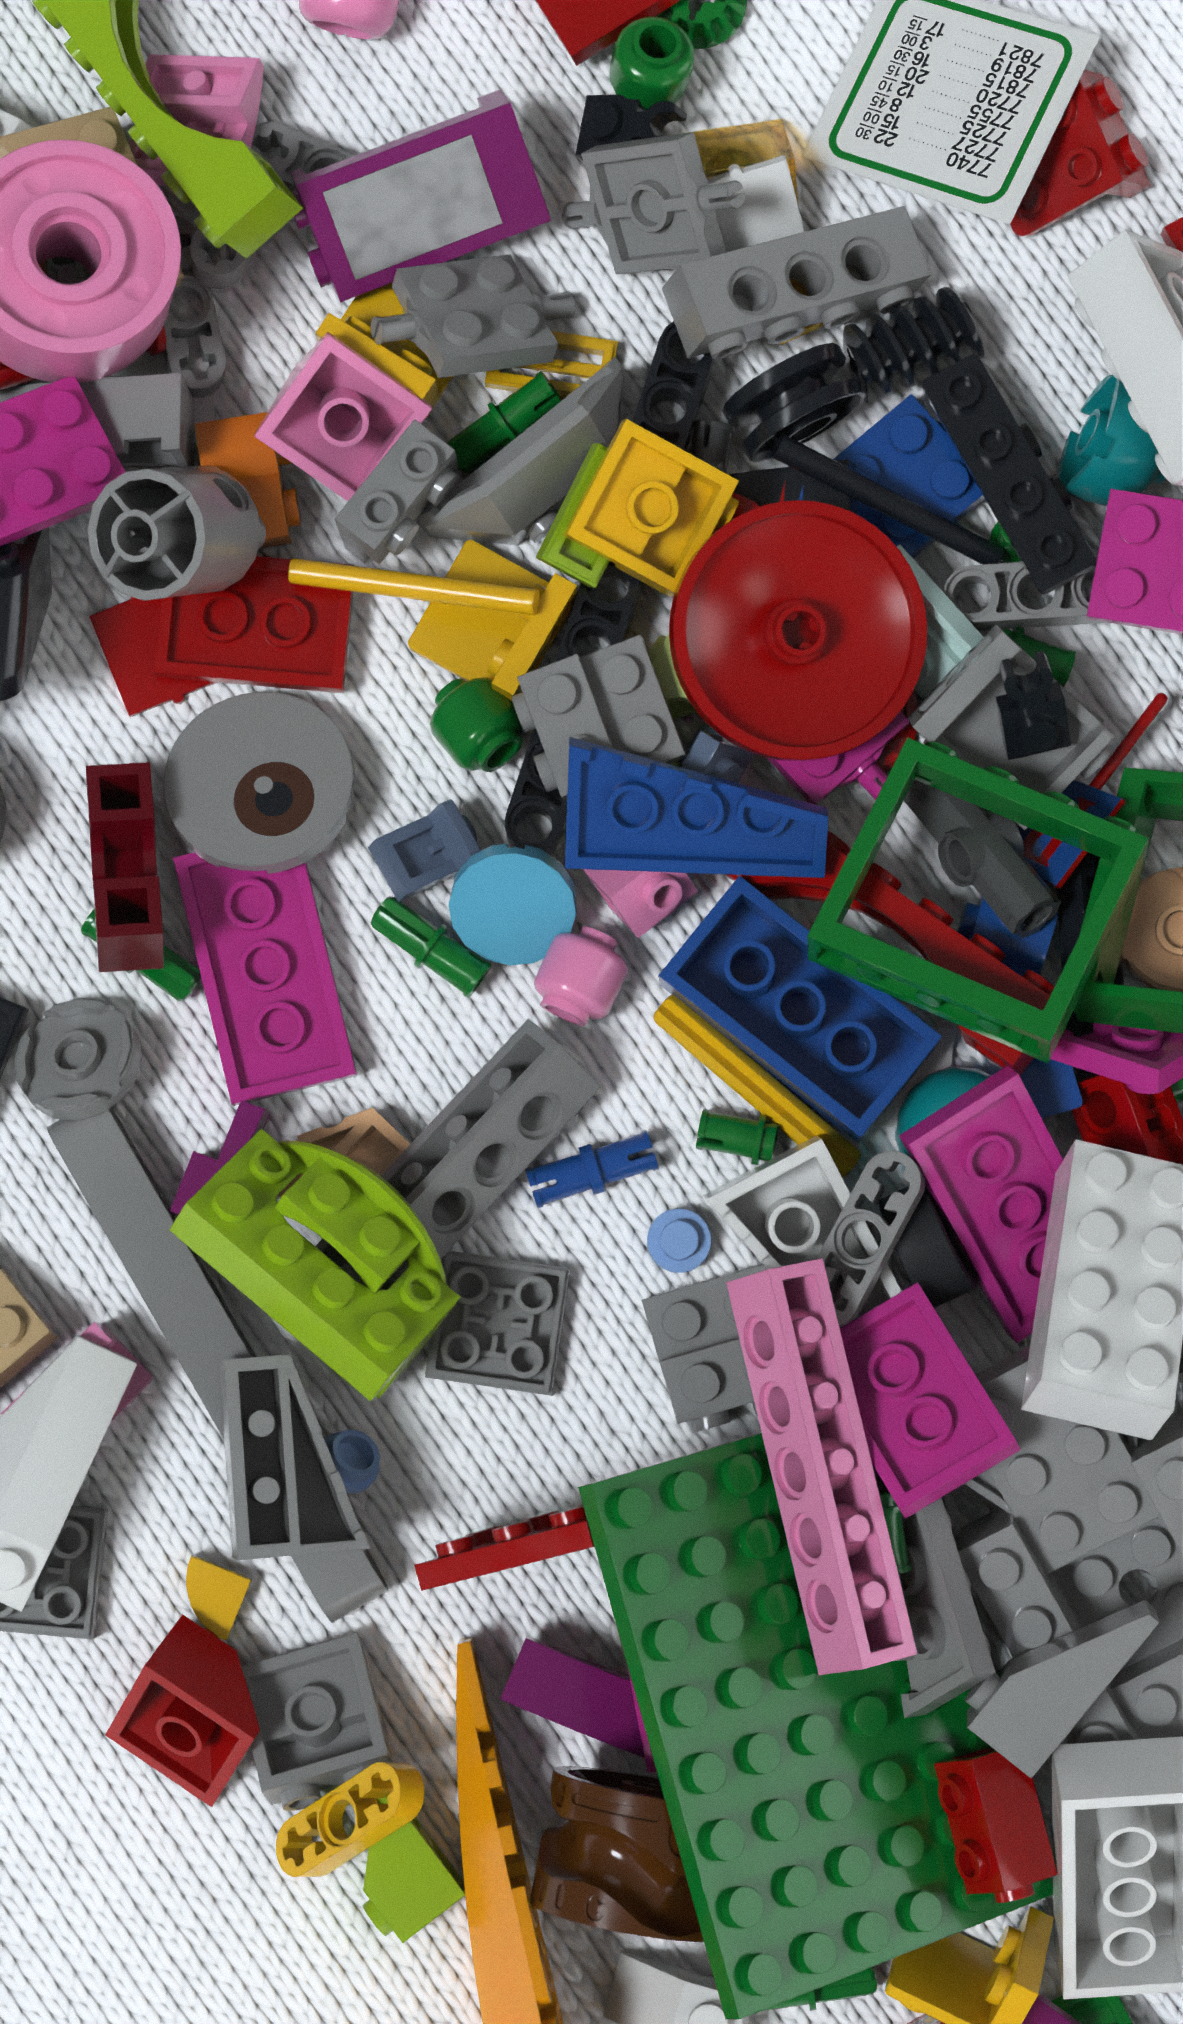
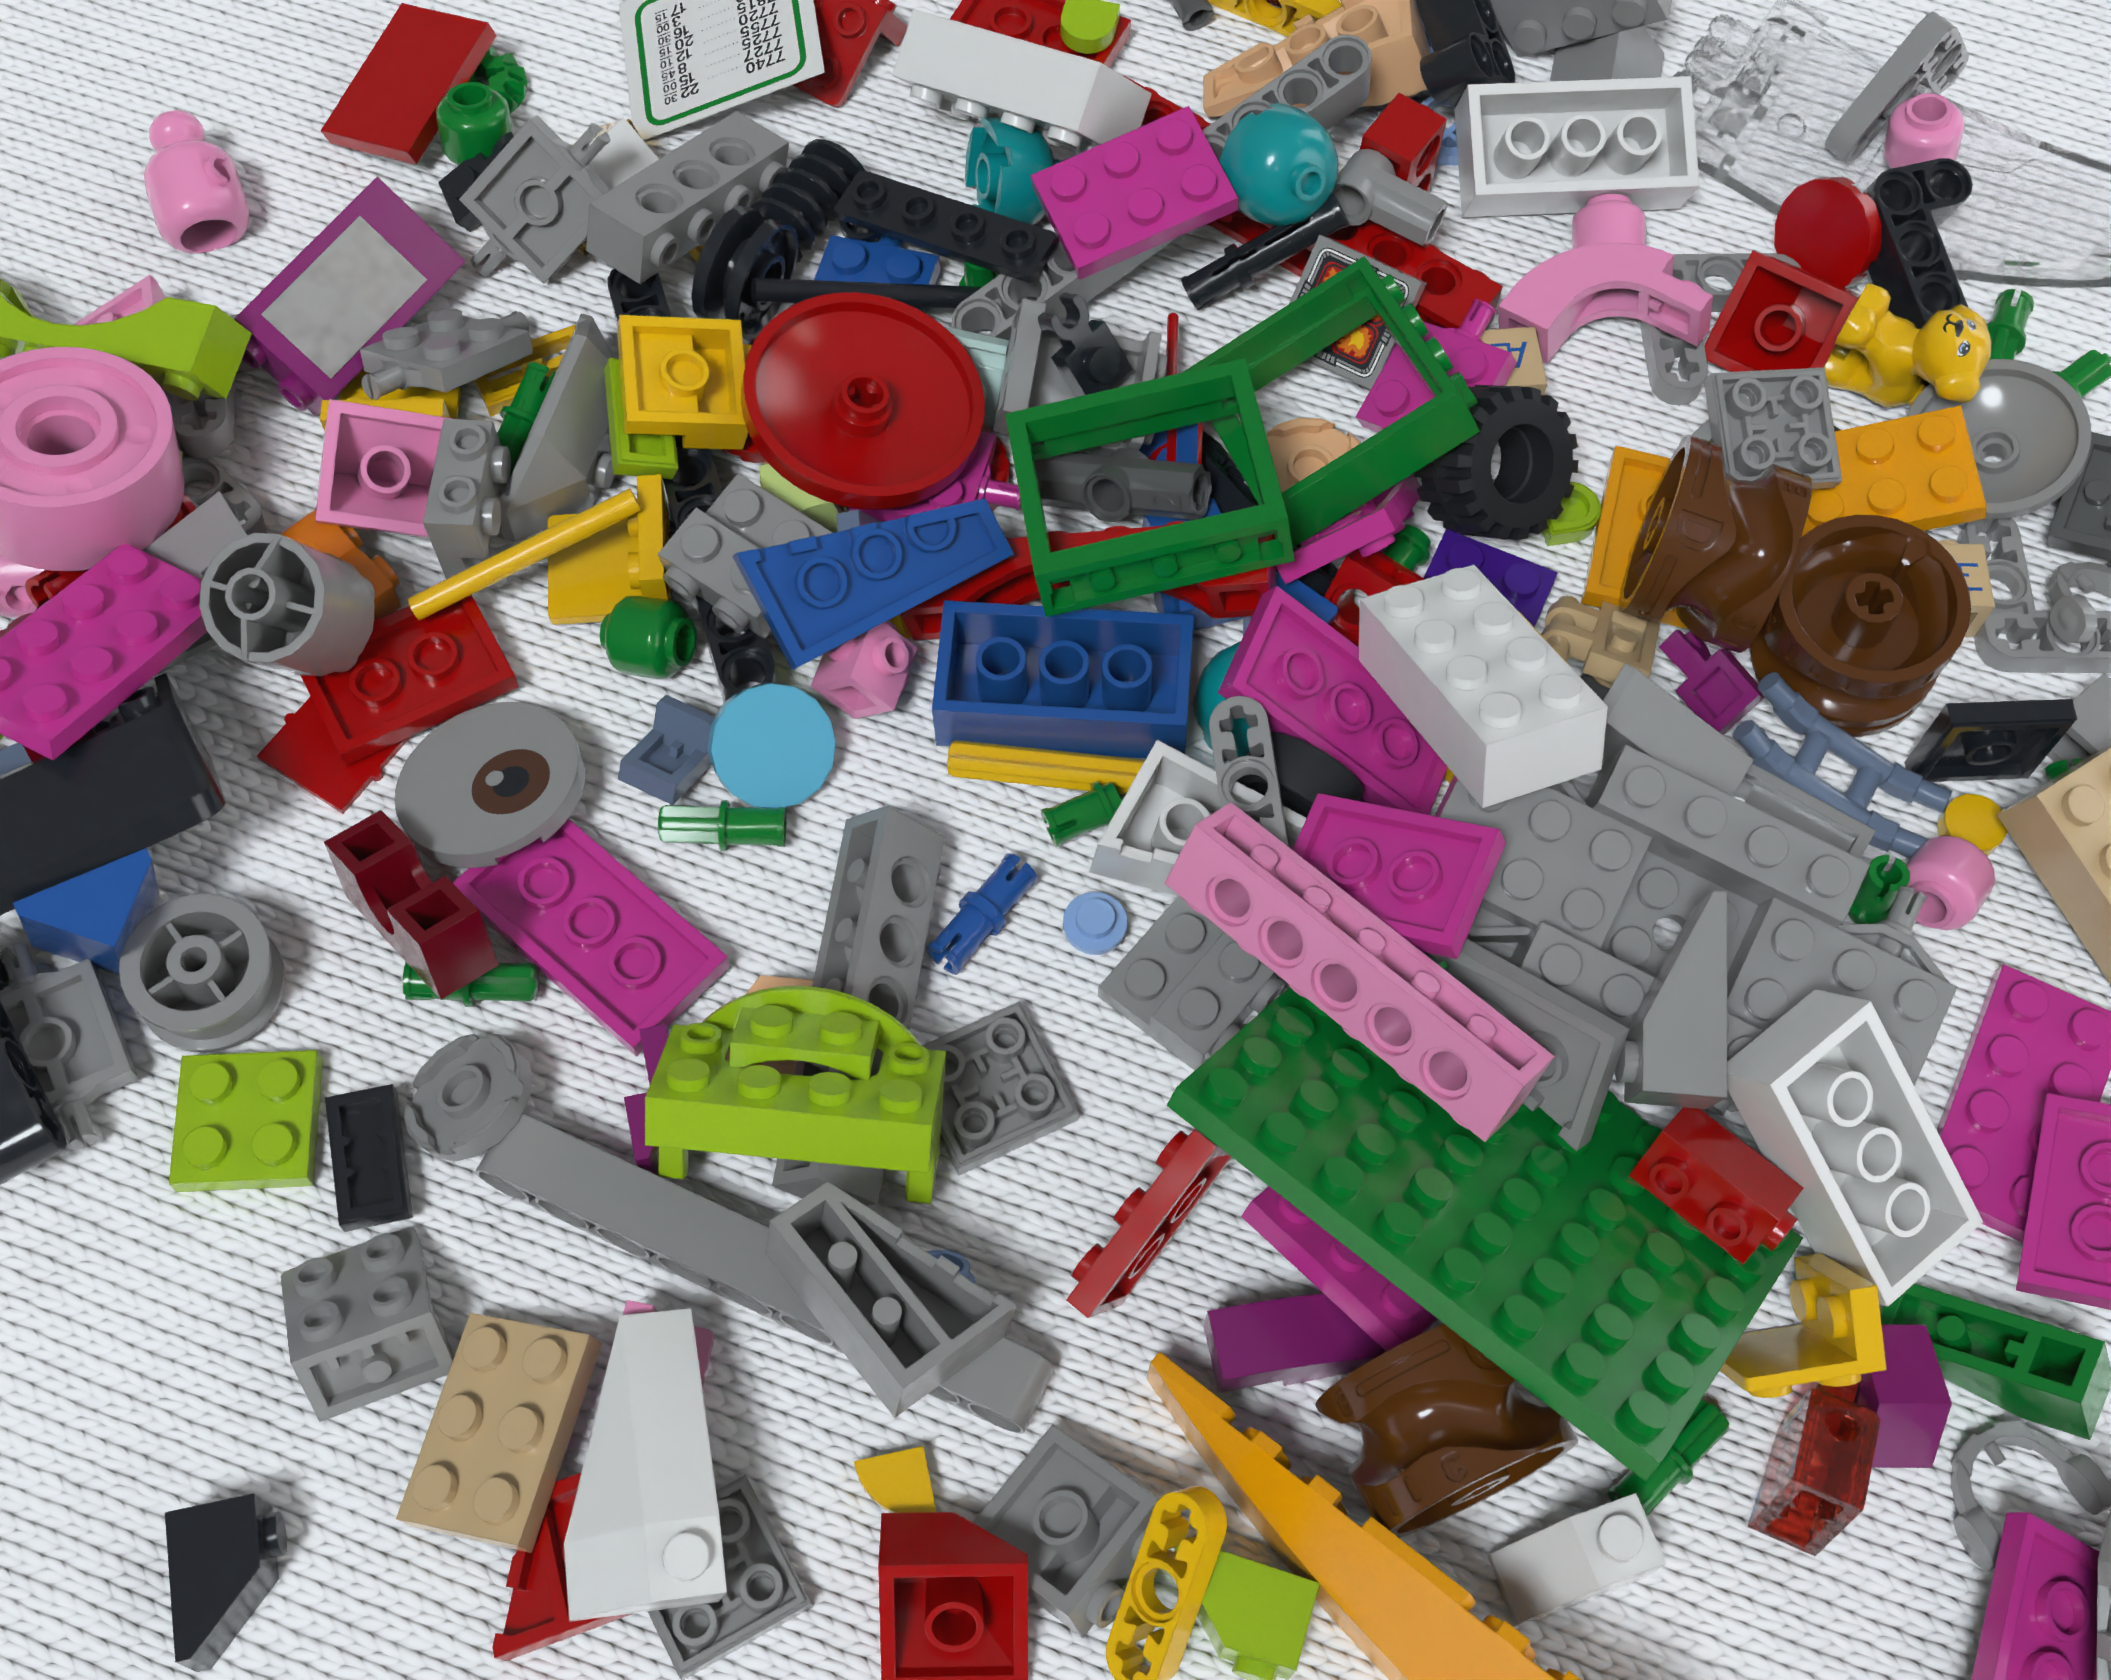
camera: 40 degrees left, 20 degrees down
(580, 976) = (866, 766): bright pink head -> none

